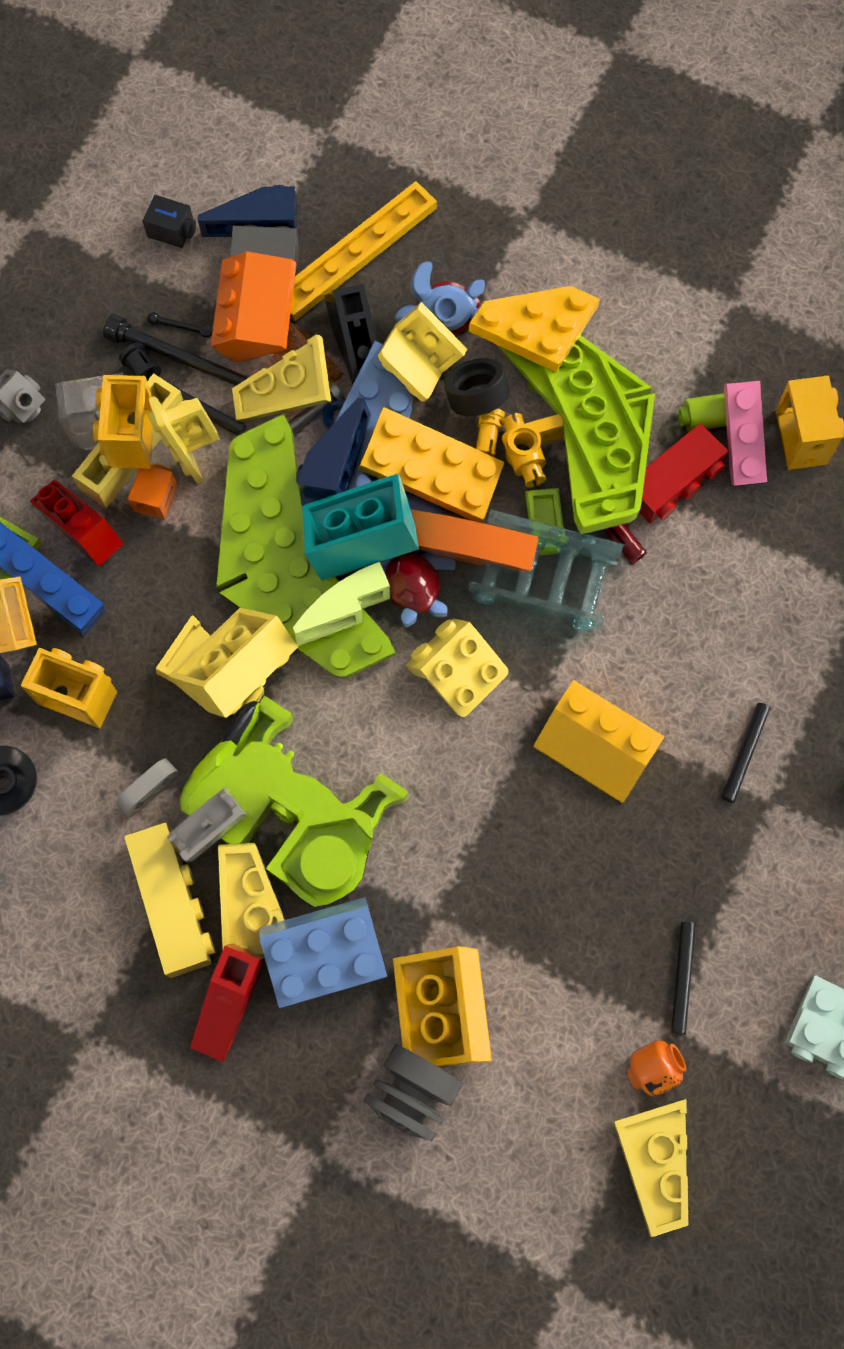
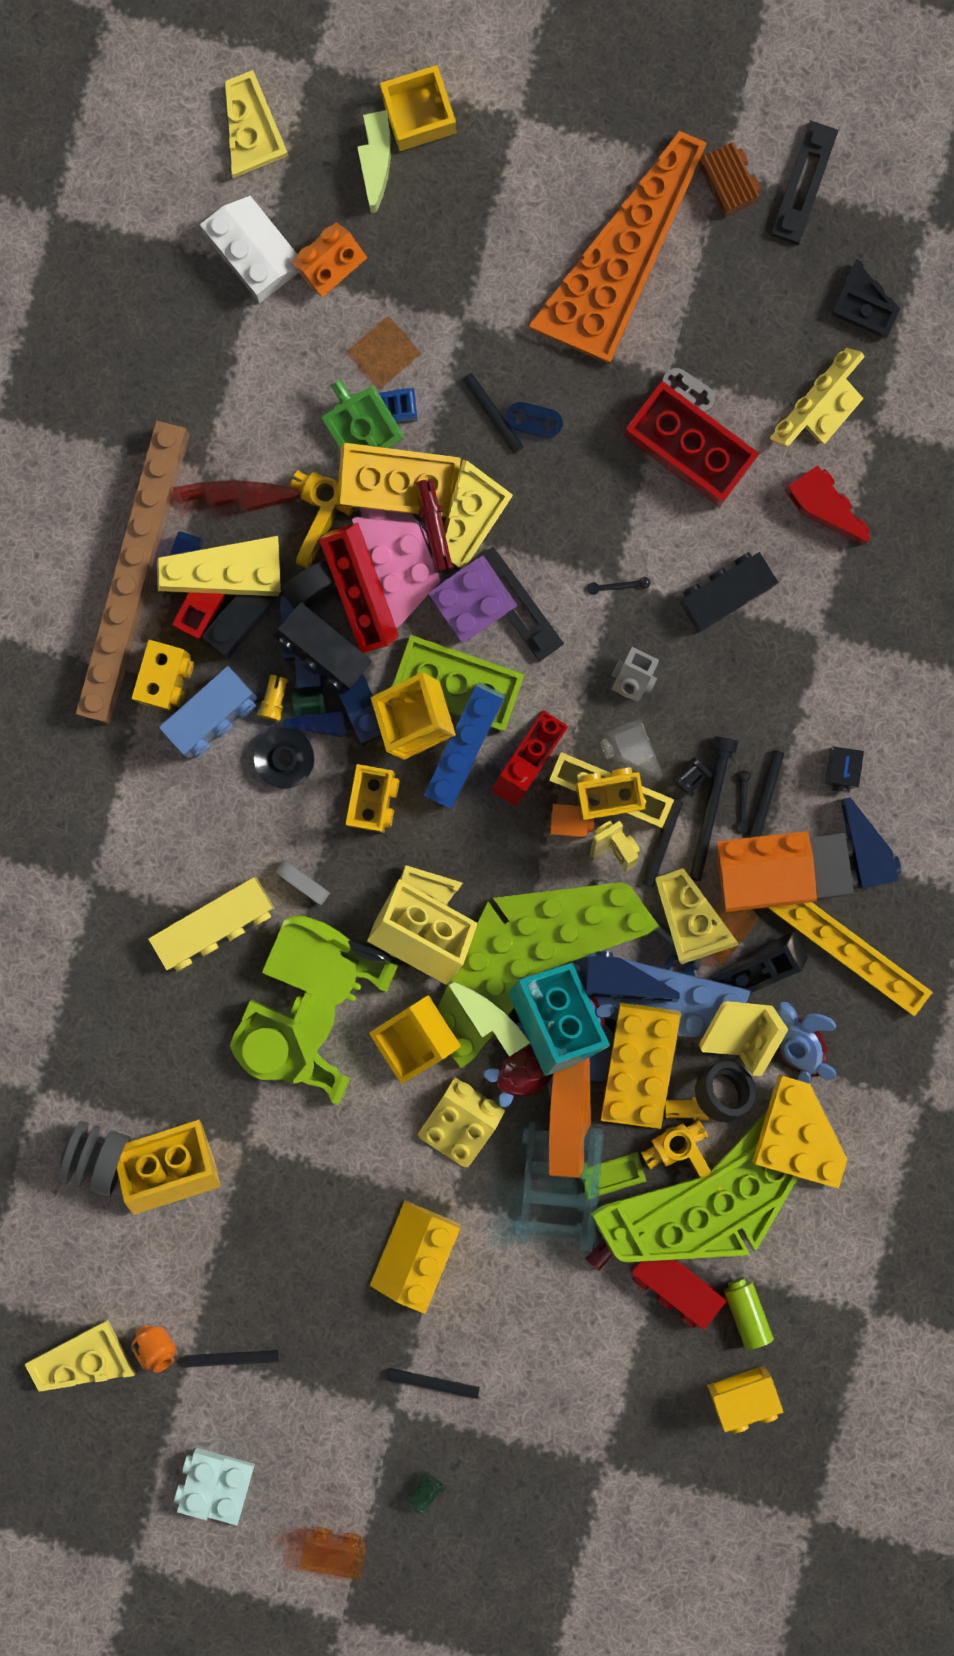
camera: 75 degrees right, 15 degrees up
(174, 300) = (766, 794): none -> black bar
(207, 825) = (273, 946): light grey hinge -> none
(226, 1000) = (139, 993): red slope -> none
(245, 896) = (218, 992): light yellow wing -> none
(322, 952) = (191, 1062): medium blue brick -> none
(351, 690) = (415, 1039): none -> yellow piece
(745, 433) = (726, 1342): bright pink plate -> none

